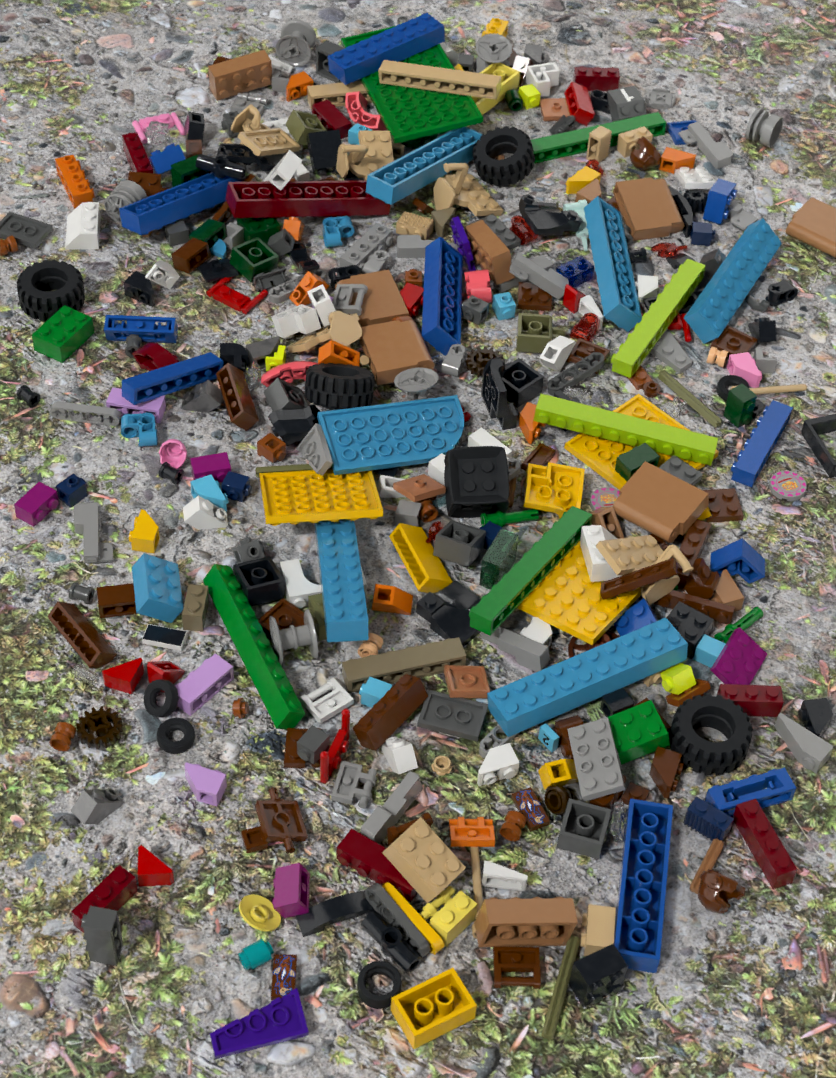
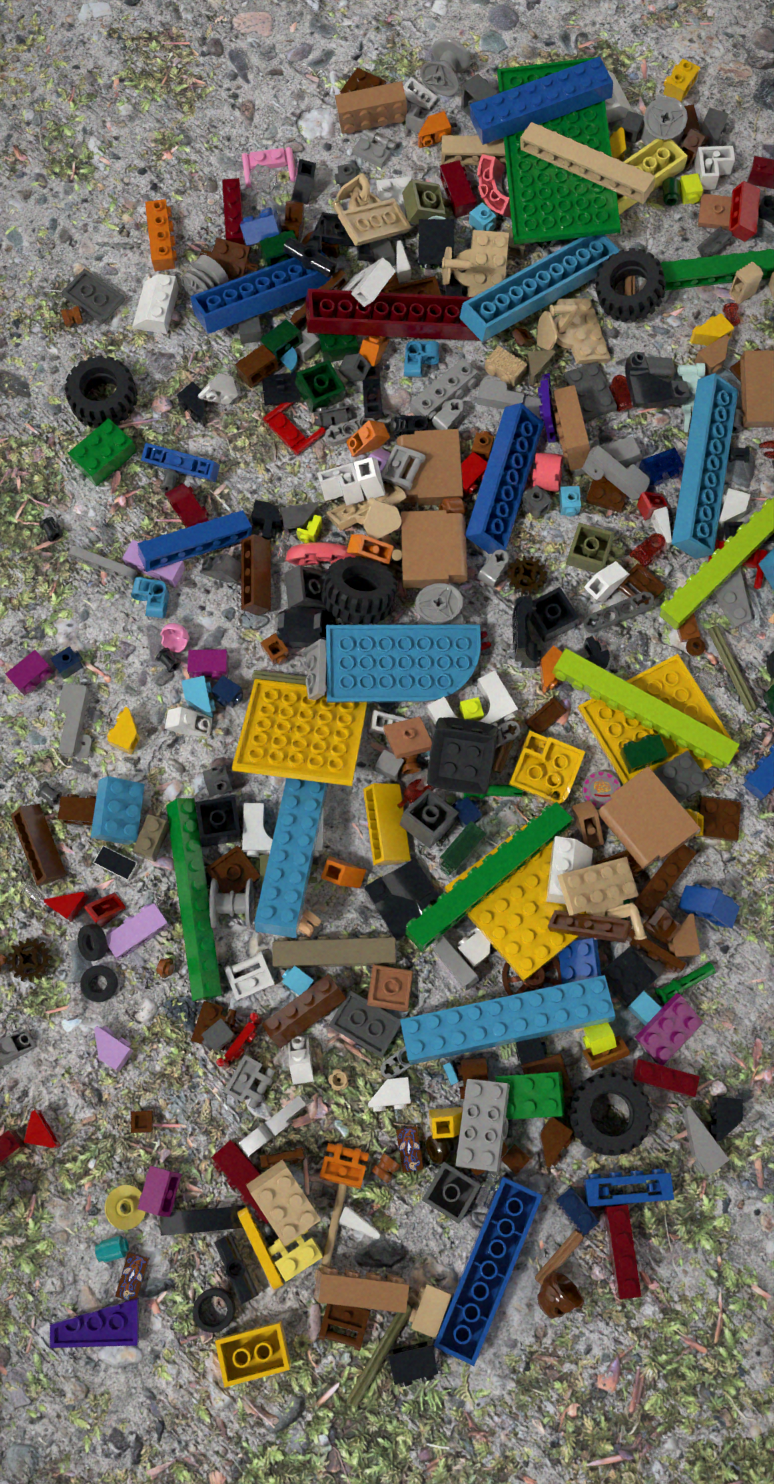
camera: 20 degrees right, 25 degrees up
(281, 820) = (169, 1110): reddish brown plate -> none
(395, 917) = (246, 1250): dark grey beam -> none

